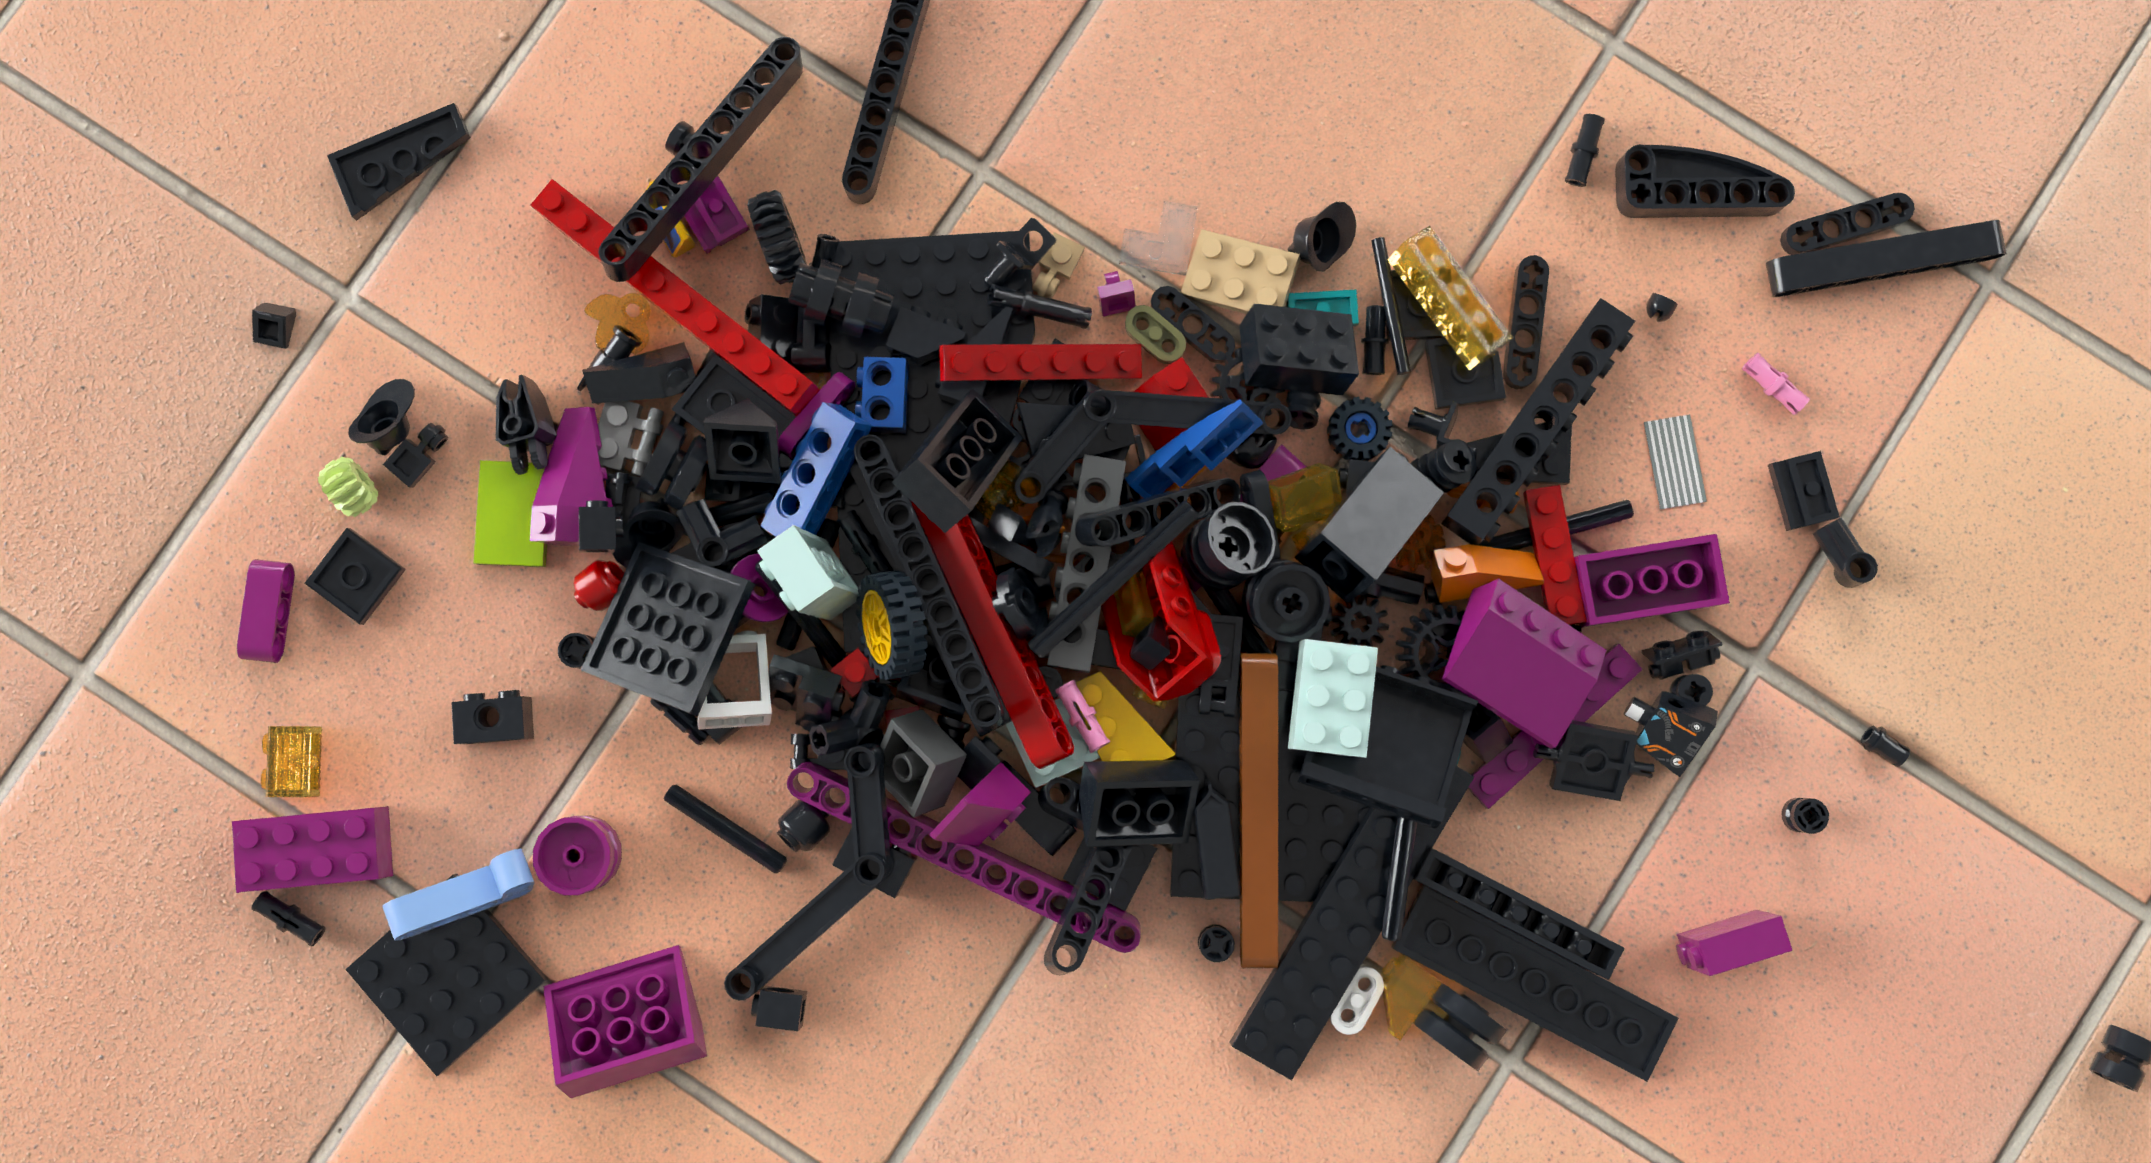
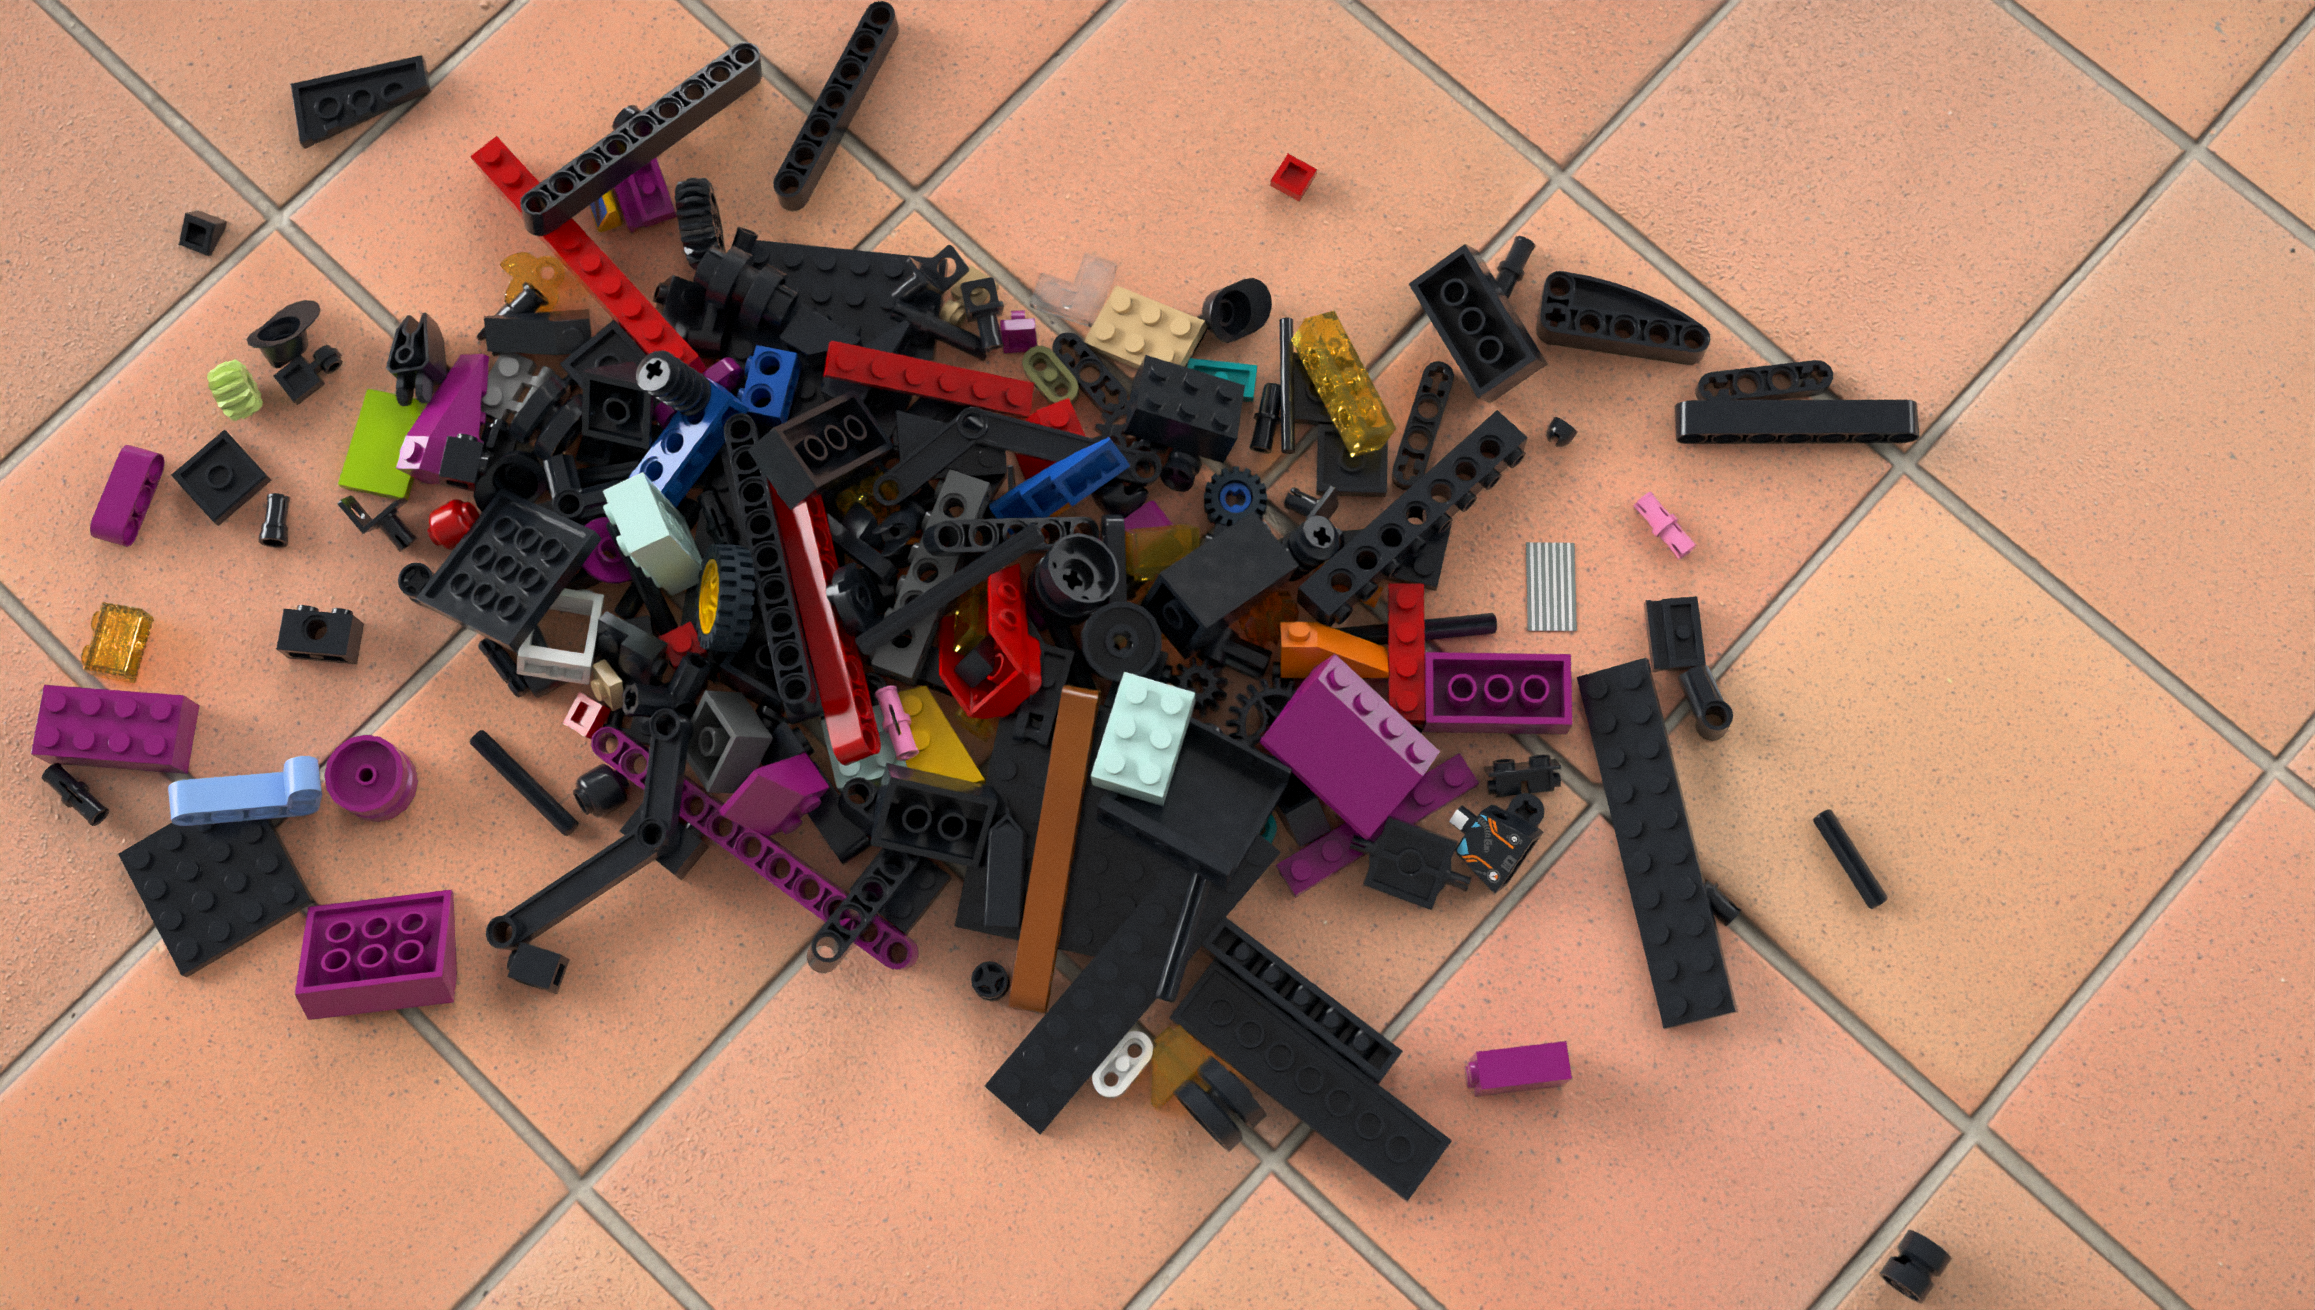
camera: 15 degrees right, 10 degrees down
(420, 611) = (274, 529): none -> black pin
(531, 593) = (386, 520): none -> black bracket
(773, 754) = (586, 715): none -> plate
(789, 723) = (607, 685): none -> tan plate
(797, 418) = (673, 382): none -> black piece
(1081, 282) = (984, 314): none -> black bracket
(1355, 88) = (1293, 177): none -> red plate
(1567, 212) = (1477, 324): none -> black brick
(1797, 813) = (1616, 962): black wheel -> none
(1821, 700) = (1657, 845): none -> black plate
(2001, 681) = (1850, 859): none -> black axle

